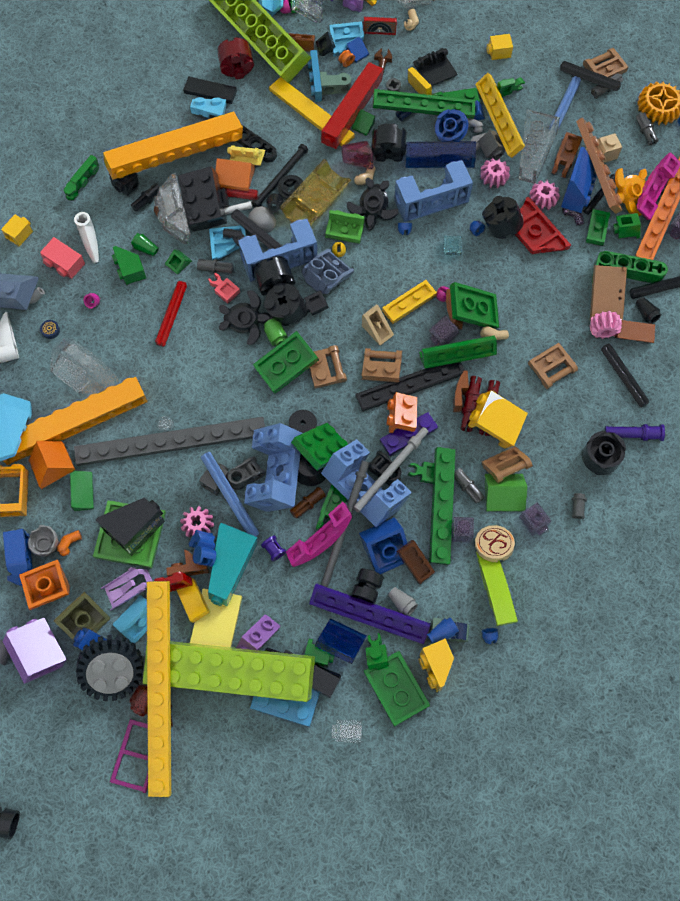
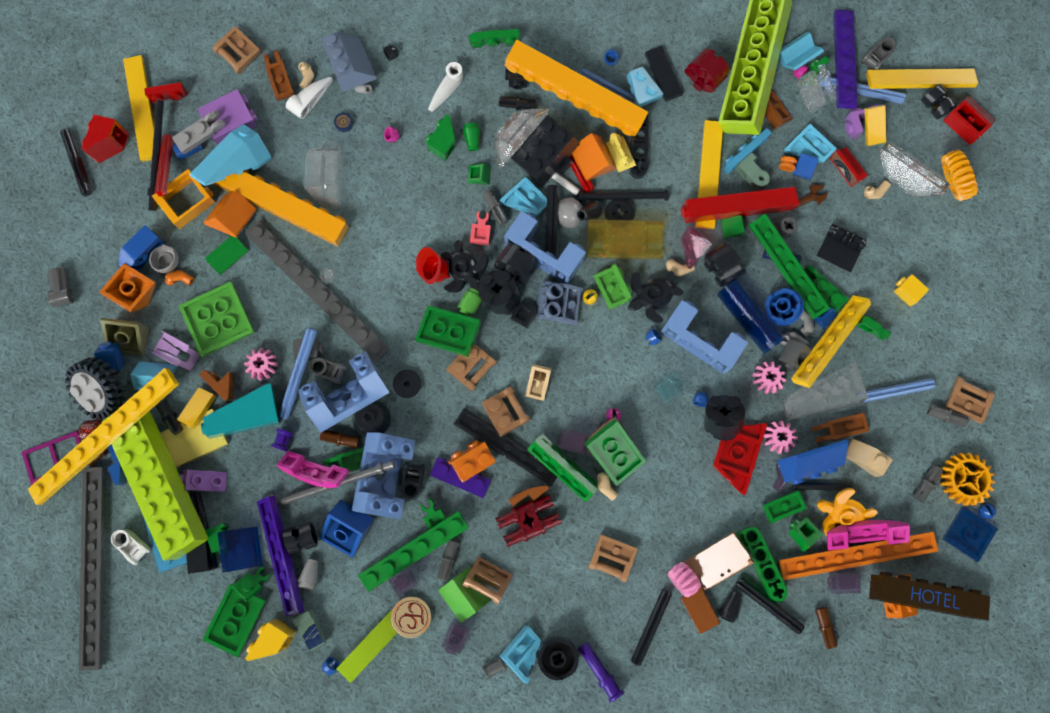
camera: 55 degrees right, 10 degrees up
(17, 230) = (409, 27): yellow brick -> none
(24, 255) = (390, 52): none -> black hinge
(34, 650) = (75, 319): brick -> none
(62, 258) = (410, 82): coral brick -> none
(132, 523) = (213, 318): black slope -> none
(166, 111) = (612, 54): none -> blue hinge
(171, 313) = (427, 205): red axle -> none
(177, 581) = (191, 376): red plate -> none
(186, 627) = (169, 417): none -> black axle
(192, 701) = (116, 470): none -> blue slope
(204, 548) = (236, 388): blue leg -> none
(222, 340) = (431, 266): none -> red piece
(234, 234) = (534, 202): black arm -> none
(263, 784) = (92, 569): none -> dark grey plate
(269, 735) = (133, 548): none -> white piece
(319, 444) = (390, 415): green plate -> none
(325, 44) = (788, 134): black tile -> none
(347, 731) = (173, 606): clear brick -> none
(409, 301) = (583, 392): yellow plate -> none
(413, 443) = (448, 489): light grey bar -> none
(415, 561) = (348, 562): reddish brown plate -> none
(419, 82) = (810, 246): yellow tile -> none
(444, 630) = (299, 628): blue cone -> none
(498, 418) = (521, 545): yellow panel -> none
(582, 478) = (522, 653): none -> medium azure wing
(590, 76) = (943, 394): black axle -> none
(602, 170) = (841, 471): nougat plate -> none

